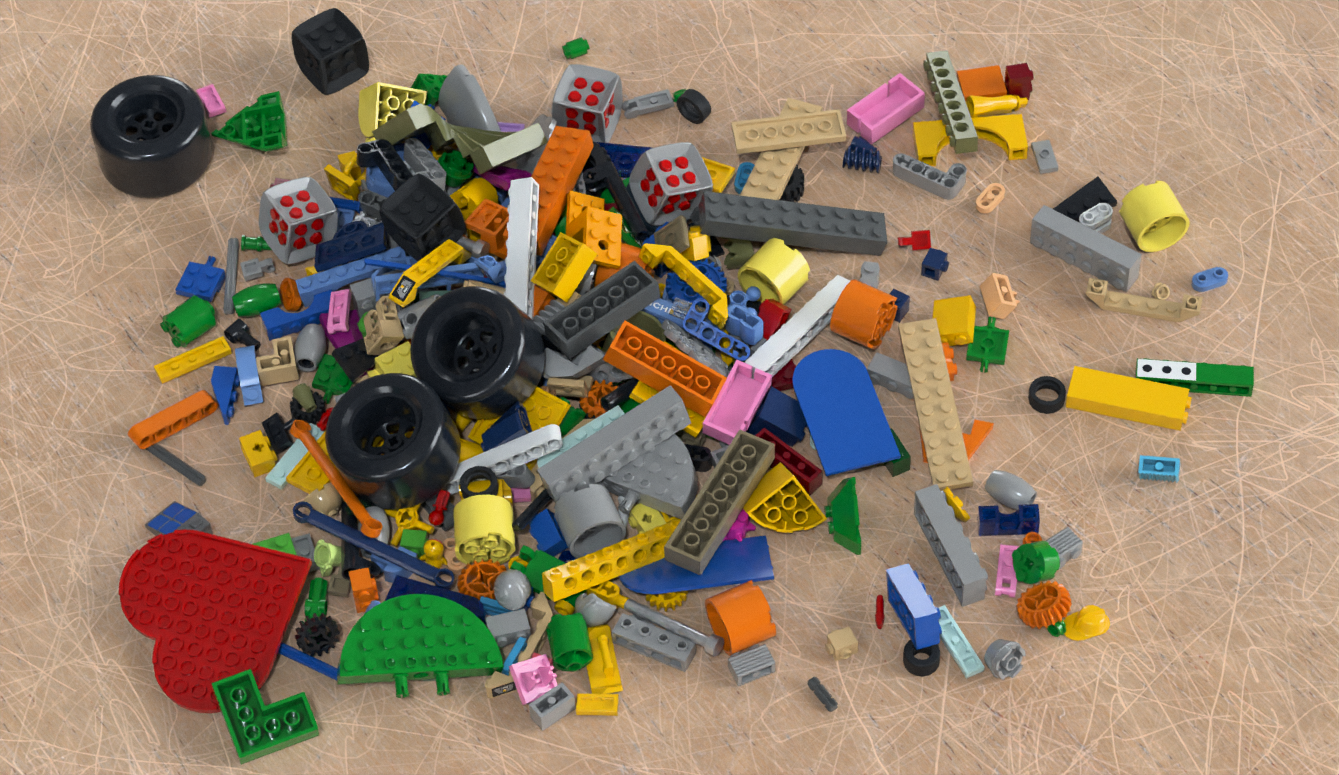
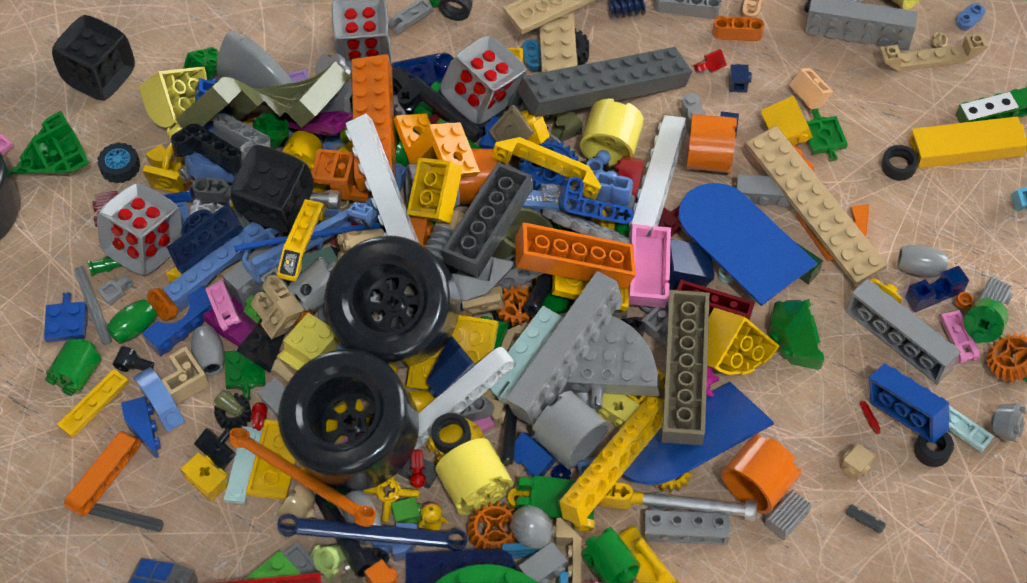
camera: 25 degrees left, 5 degrees up
(311, 156) = (118, 162): none -> black wheel
(449, 554) = (449, 510): light nougat plate -> none
(594, 609) = (617, 516): light grey piece -> none
(961, 216) = (738, 28): none -> orange beam

